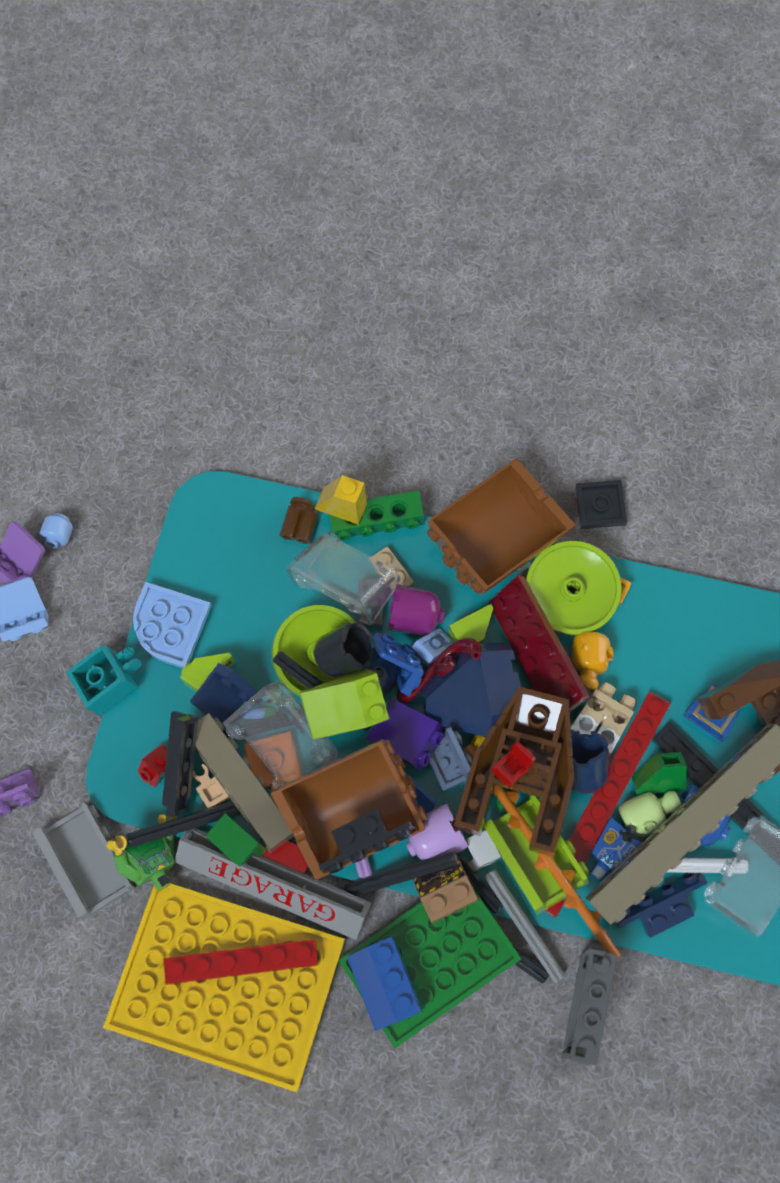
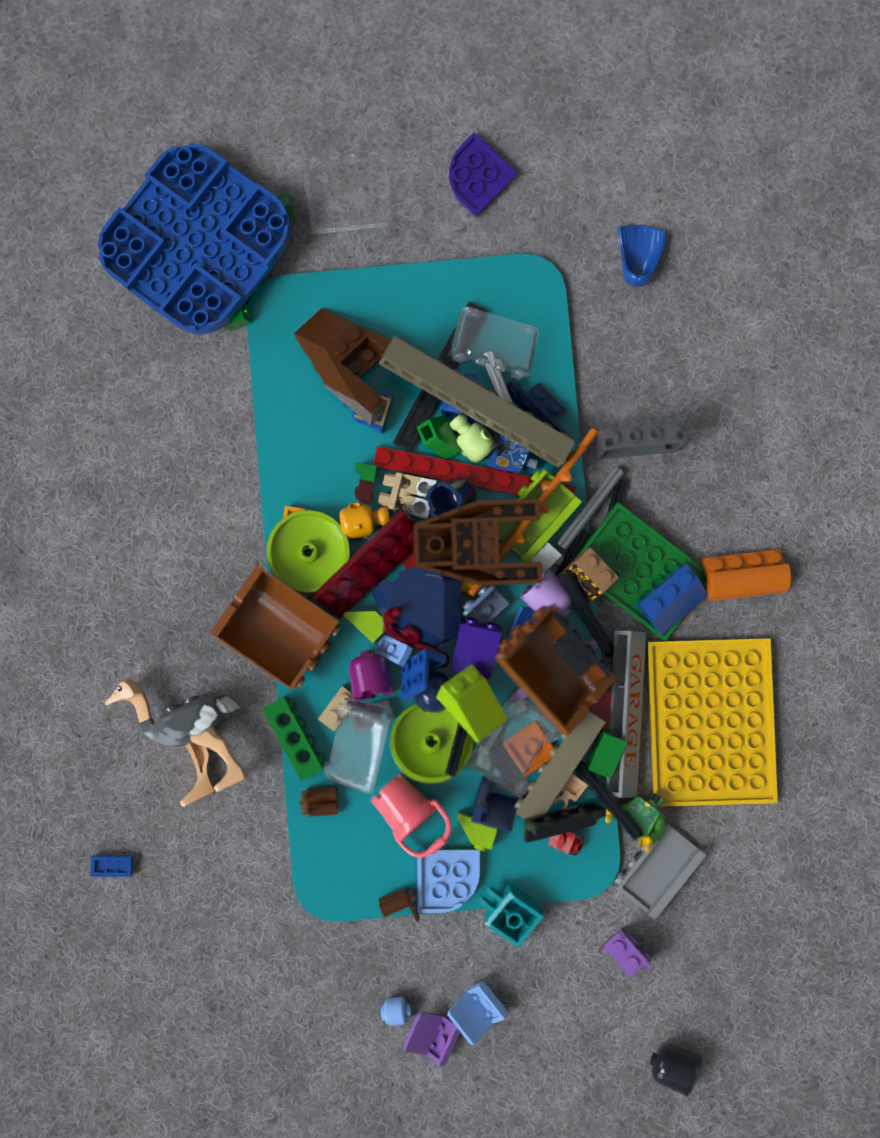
camera: 110 degrees left, 15 degrees up
(165, 566) = (398, 901): none -> reddish brown piece
(240, 962) = (693, 715): red plate -> none
(255, 602) = (406, 810): none -> coral piece
(312, 310) = (112, 865): none -> blue plate
(343, 499) = (296, 769): yellow slope -> none
(344, 650) = (428, 719): black cylinder -> none
(382, 1089) = (746, 575): none -> orange brick
(427, 415) = (191, 727): none -> animal
(513, 765) = (483, 550): red bracket -> none
(601, 504) = (219, 552): black plate -> none
(631, 678) = (365, 489): none -> leg

